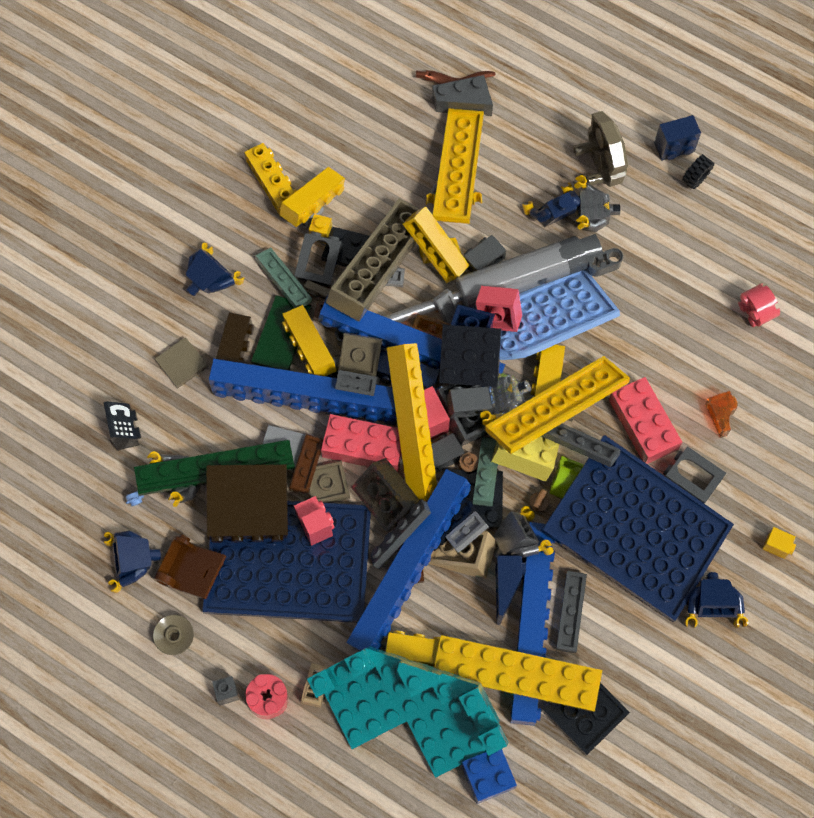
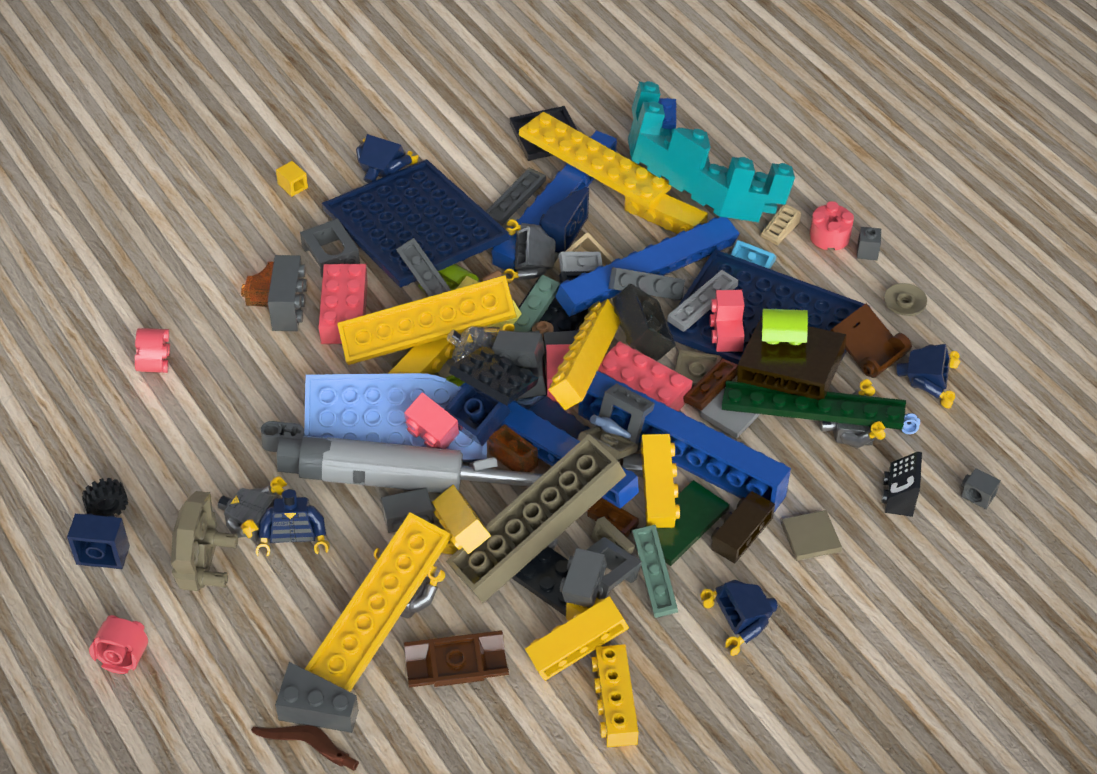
camera: 155 degrees left, 20 degrees down
(61, 454) = (980, 488): none -> dark grey brick
(260, 515) = (784, 326): none -> lime brick
(323, 224) = (583, 577): none -> dark grey brick
(327, 637) = (753, 254): none -> medium azure slope
(347, 545) = (700, 301): none -> light grey plate
(365, 367) = (609, 426): none -> sand blue animal
(387, 160) = (455, 659): none -> reddish brown piece
(610, 77) = (119, 644): none -> coral brick
(694, 403) = (286, 293): none -> dark grey brick

